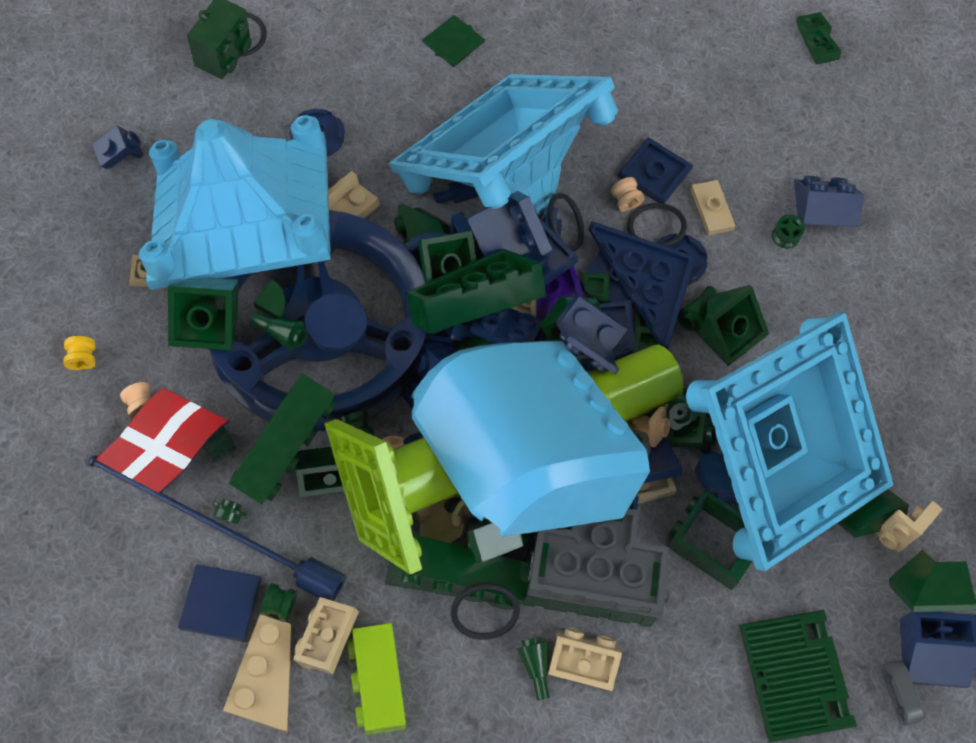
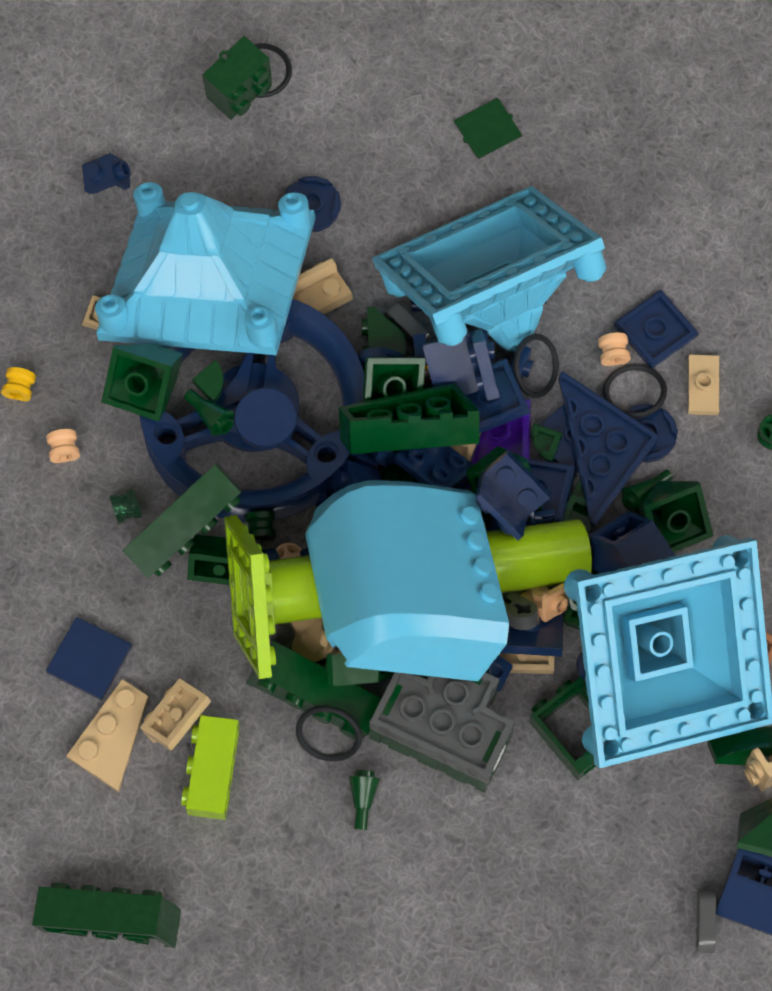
camera: 25 degrees right, 5 degrees up
(162, 446) = (72, 497): flag -> none
(228, 511) = (119, 575): dark green plate -> none
(278, 602) = (142, 672): dark green wheel -> none
(585, 658) = (410, 803): tan bracket -> none
(709, 355) = (627, 543): none -> dark blue slope
(797, 676) = (608, 876): dark green window -> none

